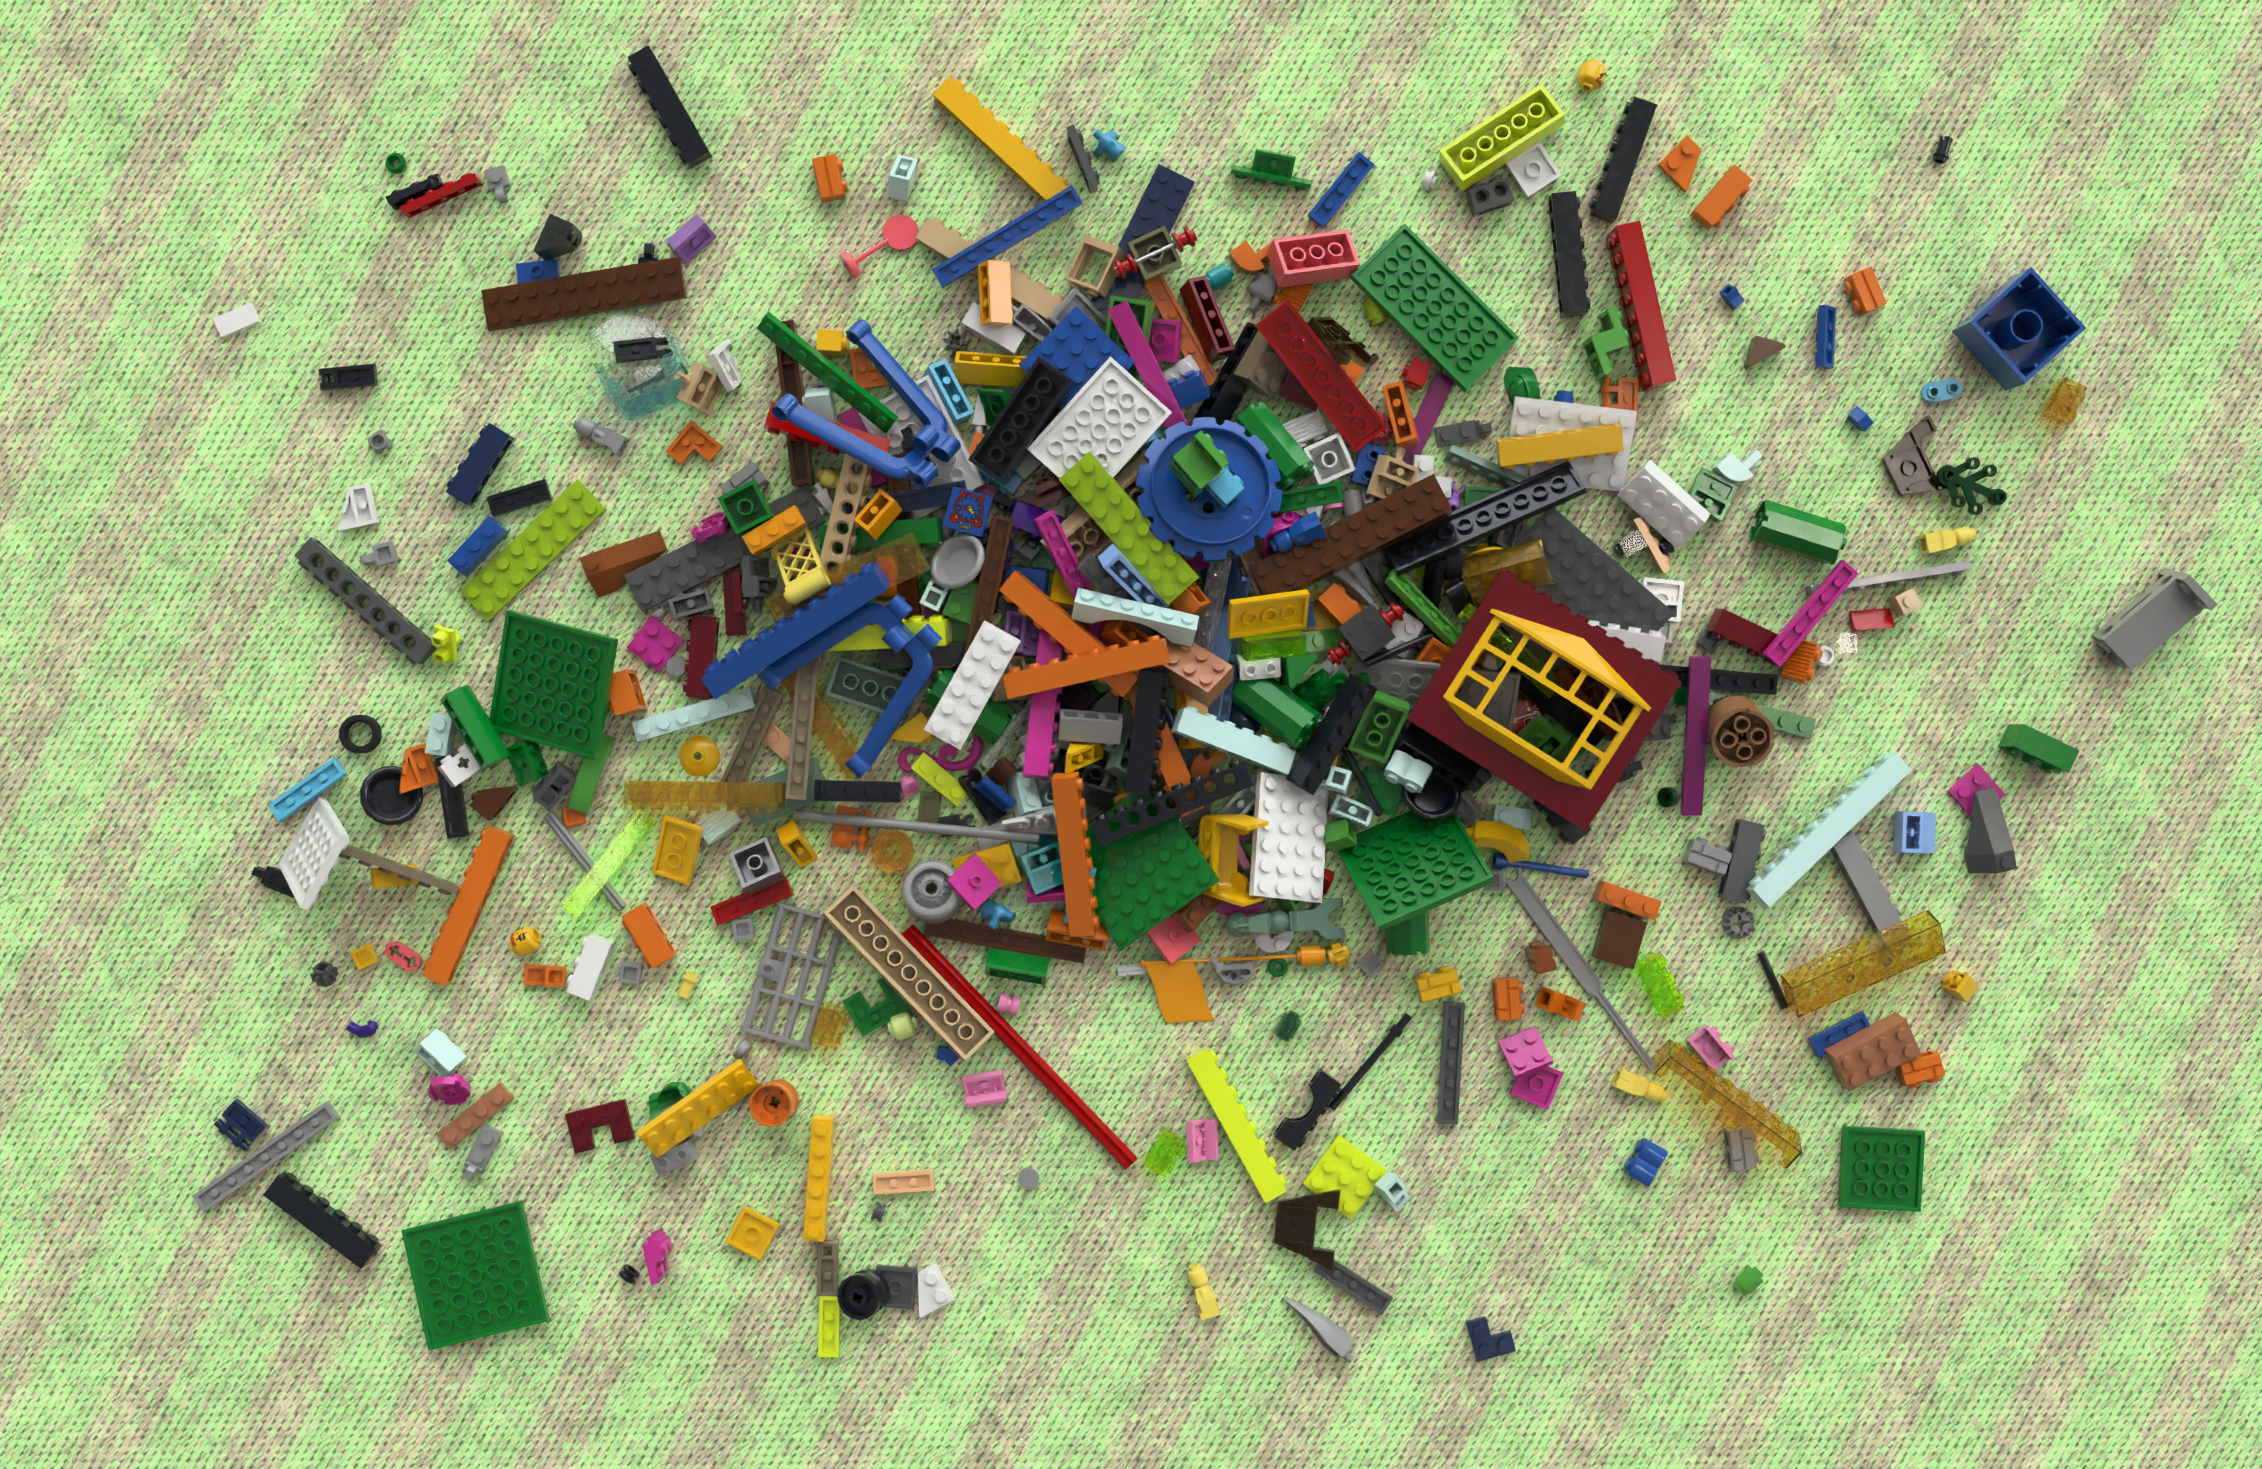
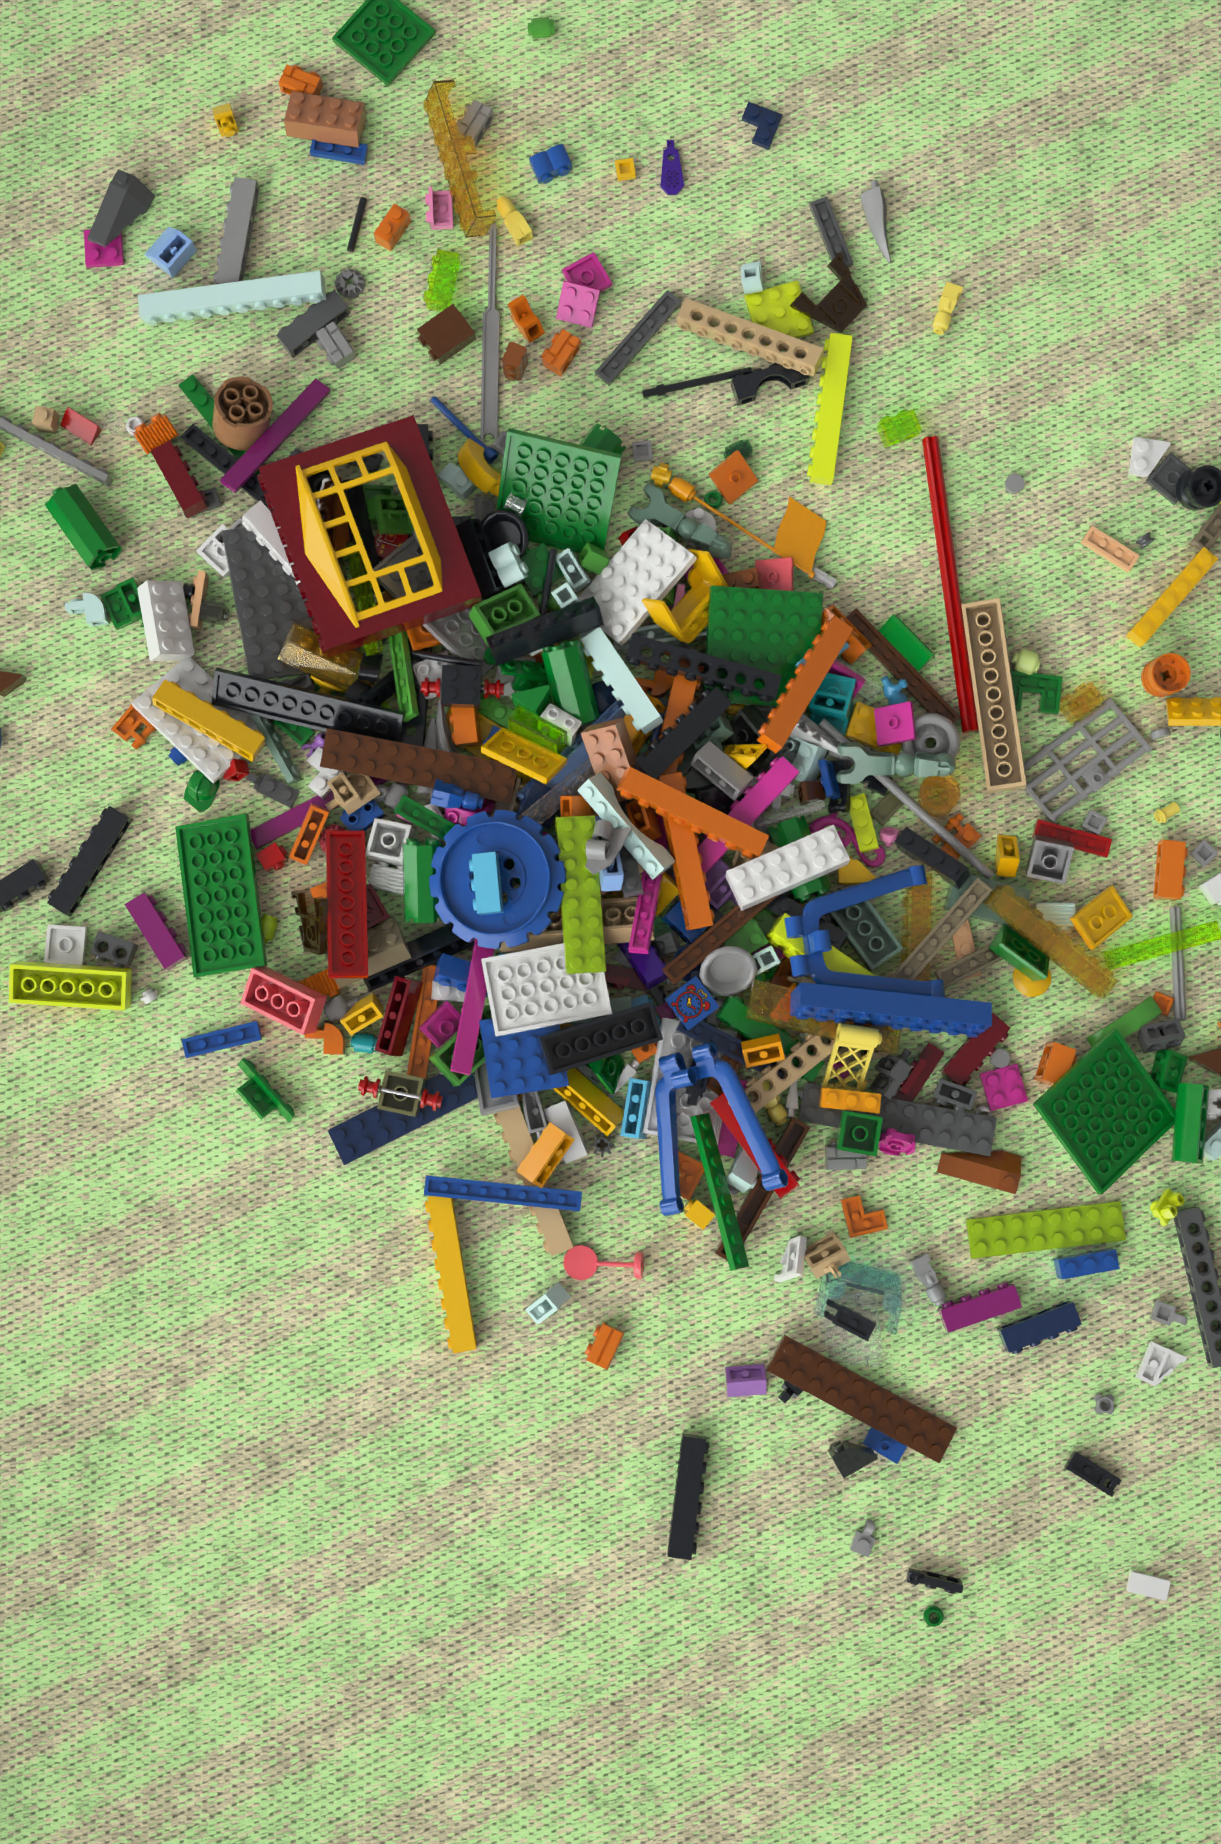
camera: 145 degrees left, 5 degrees down
(436, 197) = (907, 1561): red plate -> none
(519, 498) = (1027, 1277): black plate -> none
(541, 443) = (979, 1307): none -> magenta brick
(694, 714) = (1015, 1009): light aqua arch -> none
(723, 766) = (1020, 953): none -> green slope
(946, 1054) = (1009, 617): blue piece -> none
(964, 834) = (886, 763): none -> sand green piece
(984, 1088) = (999, 571): bright pink bracket -> none
(1009, 1004) = (934, 619): bright pink wheel -> none
(1081, 260) = (460, 1134): tan window -> none
(1083, 158) = (398, 1210): dark grey plate -> none
(1108, 144) = (371, 1208): dark azure piece -> none
(1138, 582) = (604, 845): none -> light grey panel
(1198, 463) = (492, 895): bright green bracket -> none
(1202, 1140) = (864, 416): bright pink bracket -> none
(1232, 972) = (749, 519): light grey piece -> none
(1238, 299) = (363, 1014): none -> yellow slope
(1274, 998) = (733, 477): none -> orange plate
(1422, 1121) = (743, 329): none -> tan brick
(1437, 984) = (604, 399): yellow brick -> none
(1438, 832) = (515, 503): none -> clear bush
(1465, 238) = (156, 931): none -> magenta brick
(1503, 424) = (237, 770): none -> red slope
(1538, 1239) = (669, 168): none -> dark purple piece
(1577, 1206) = (625, 169): none -> yellow plate
(1606, 343) = (113, 771): bright green bracket -> none
(1627, 900) = (418, 357): orange brick -> none
(1640, 306) = (67, 779): red brick -> none
(1668, 797) = (330, 409): dark green tile -> none
(1739, 999) = (392, 227): none -> orange brick
(1810, 613) = (121, 460): dark pink plate -> none
(1868, 963) = (277, 181): clear yellow piece -> none
(2038, 749) = (34, 241): green brick -> none

